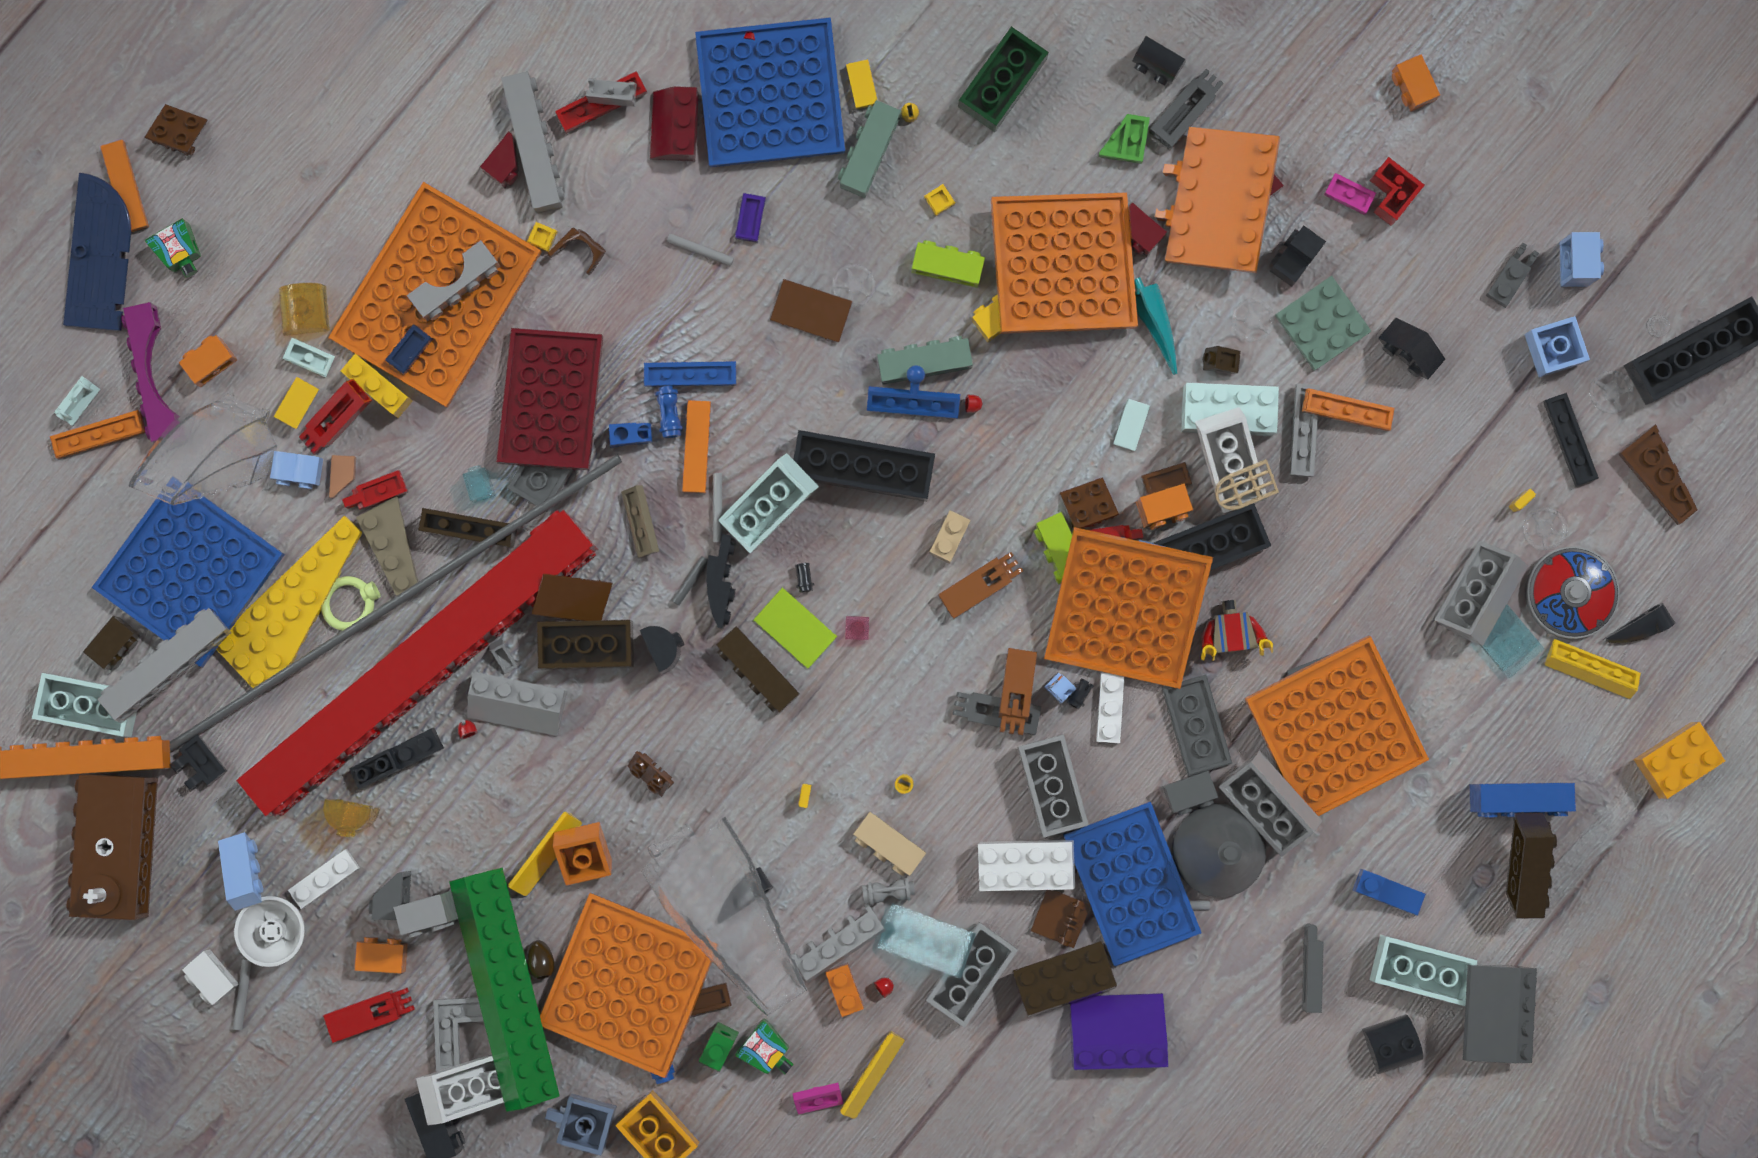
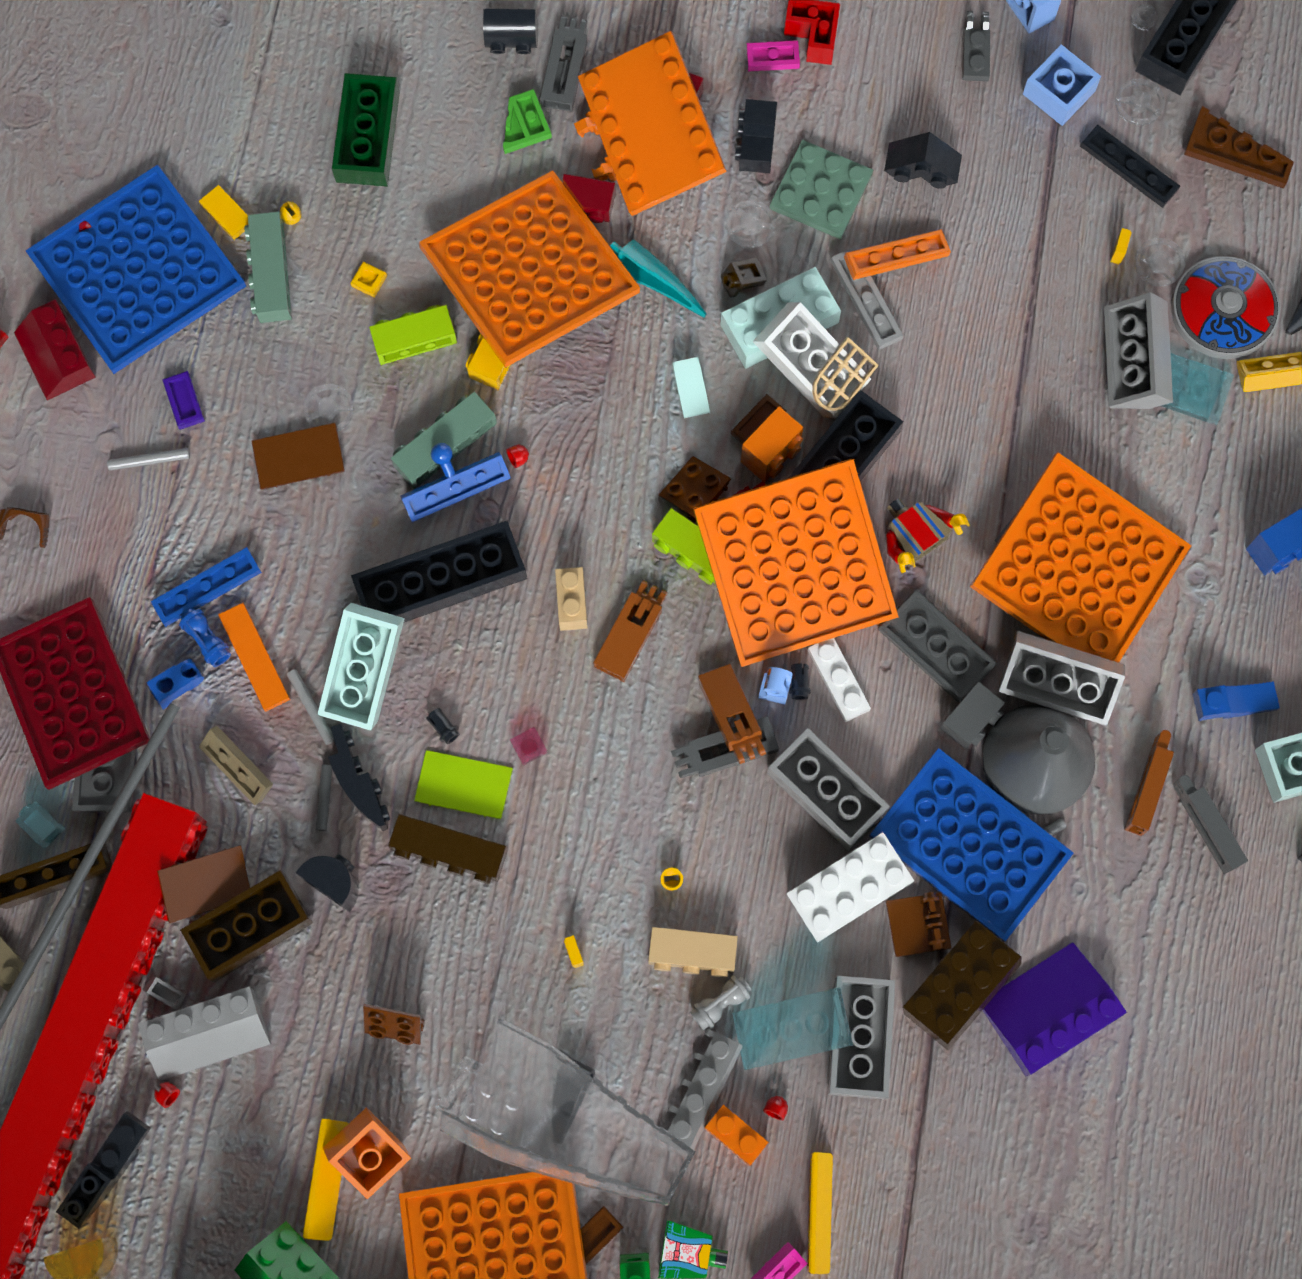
camera: 30 degrees left, 10 degrees down
(1287, 916) = (1150, 785): none -> dark orange hinge

